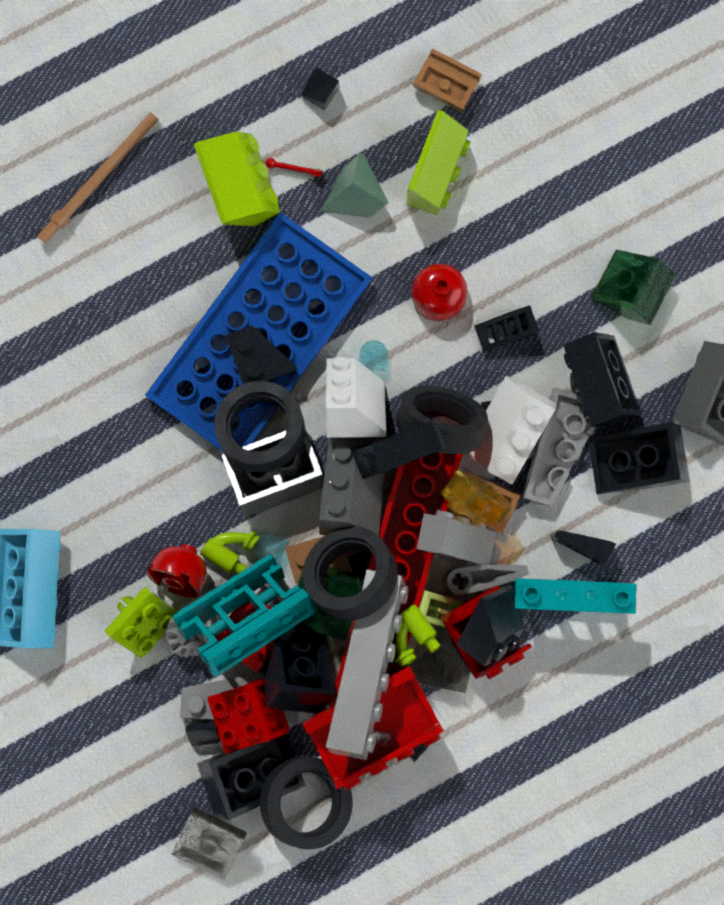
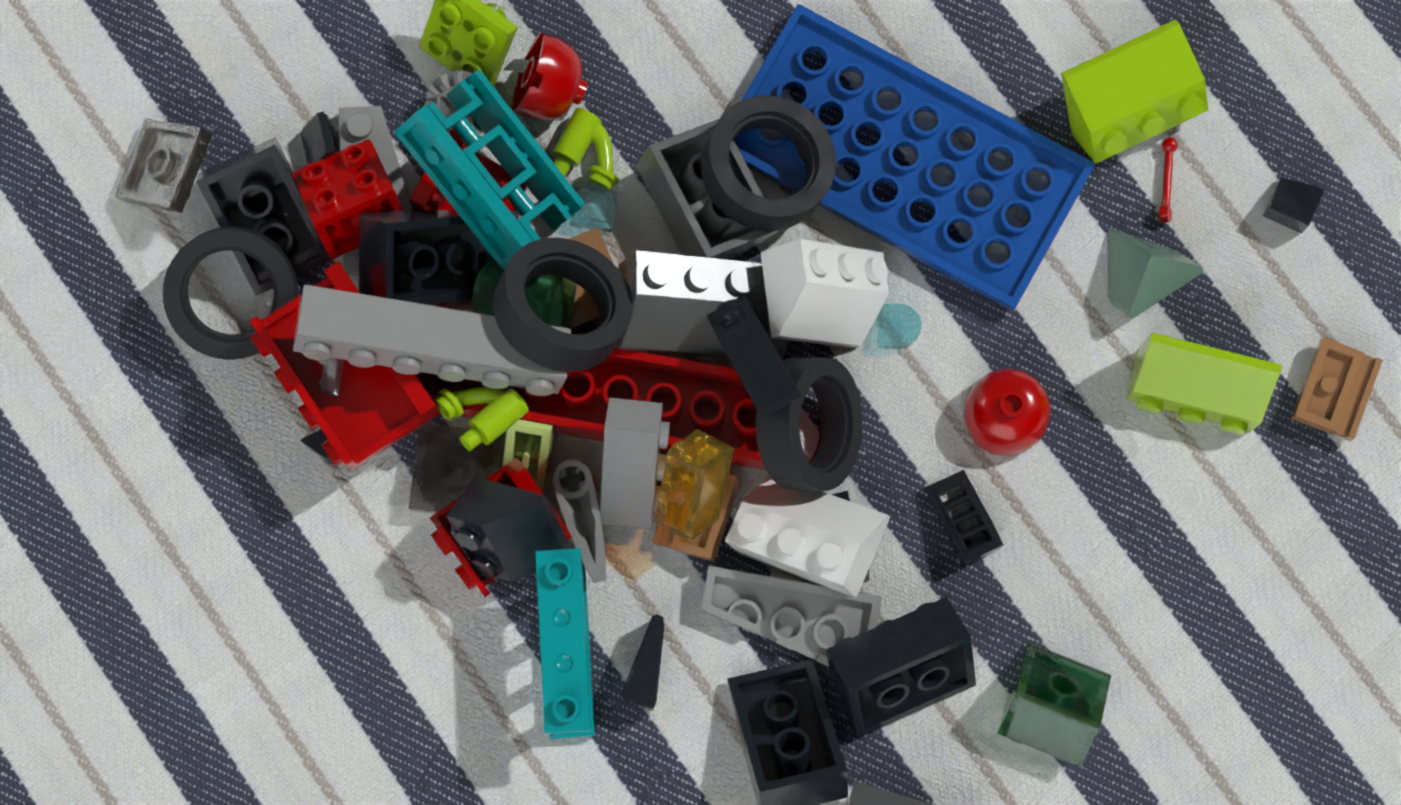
camera: 85 degrees right, 5 degrees down
(257, 357) = (872, 152): black wing -> none

